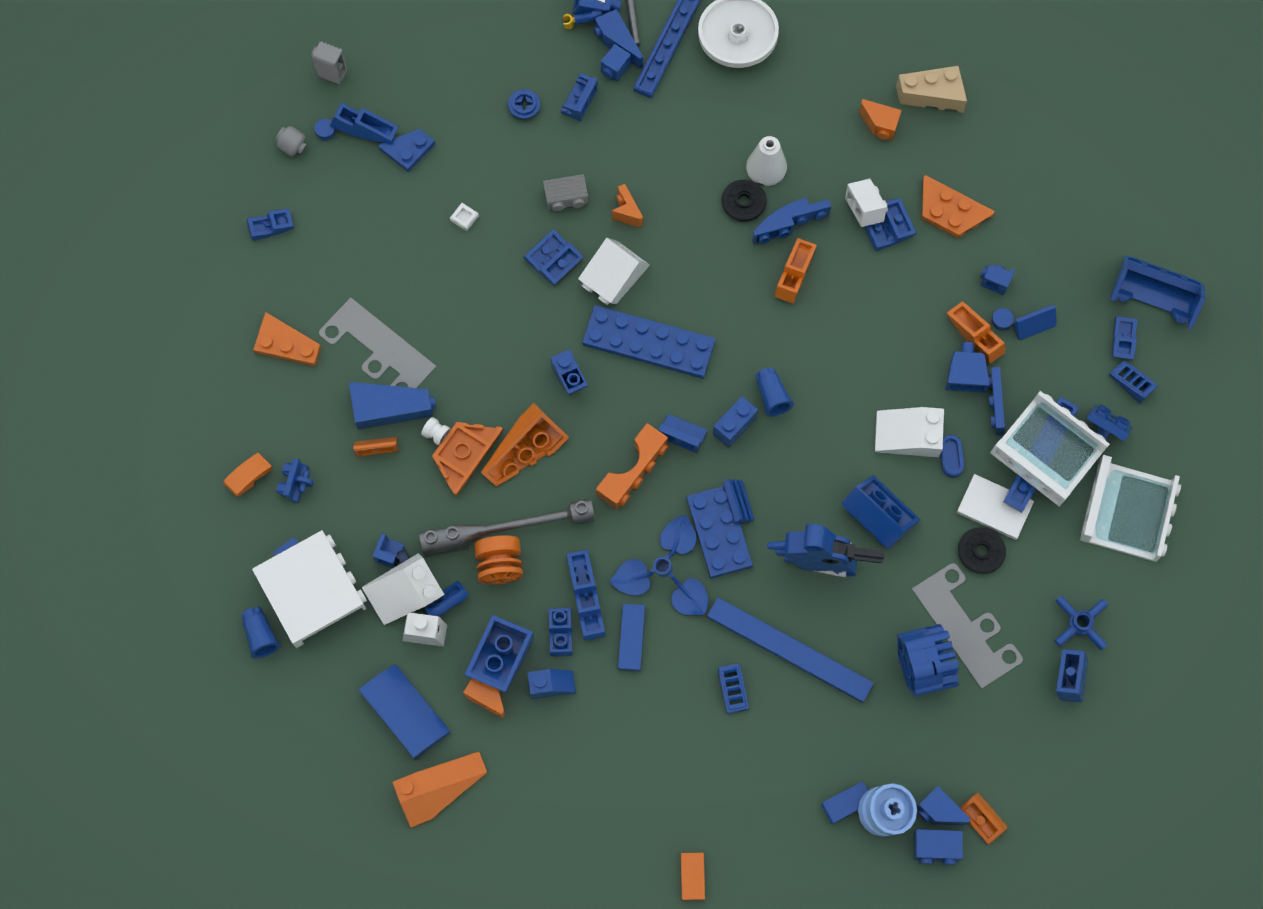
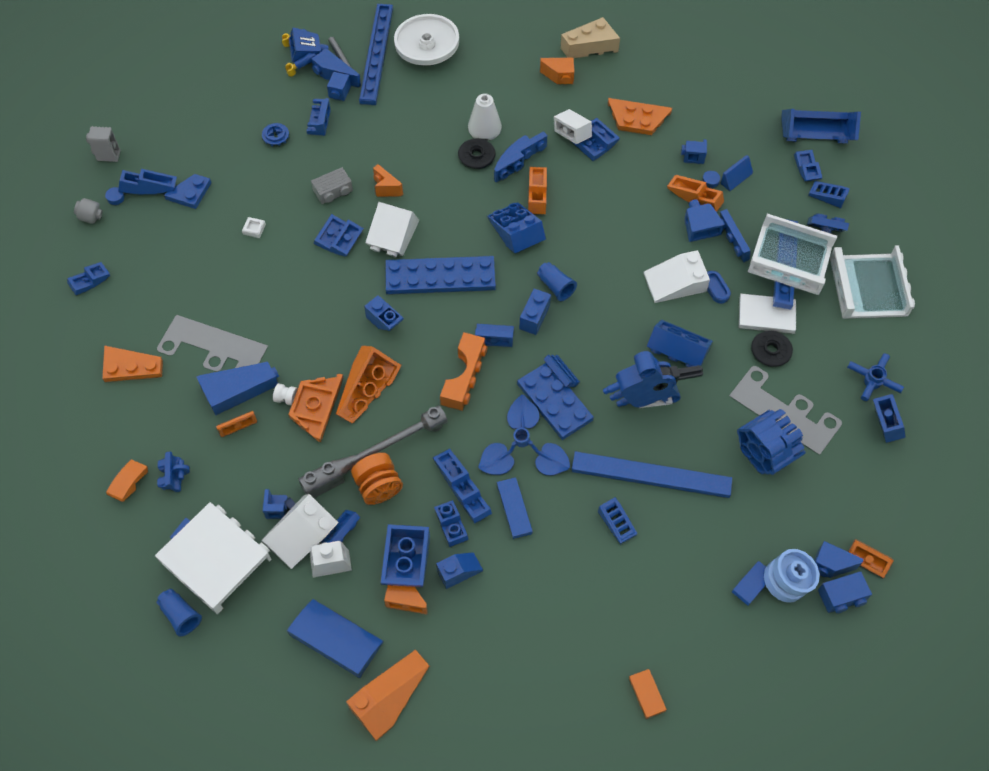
camera: 20 degrees left, 10 degrees down
(754, 310) = (517, 227): none -> blue slope

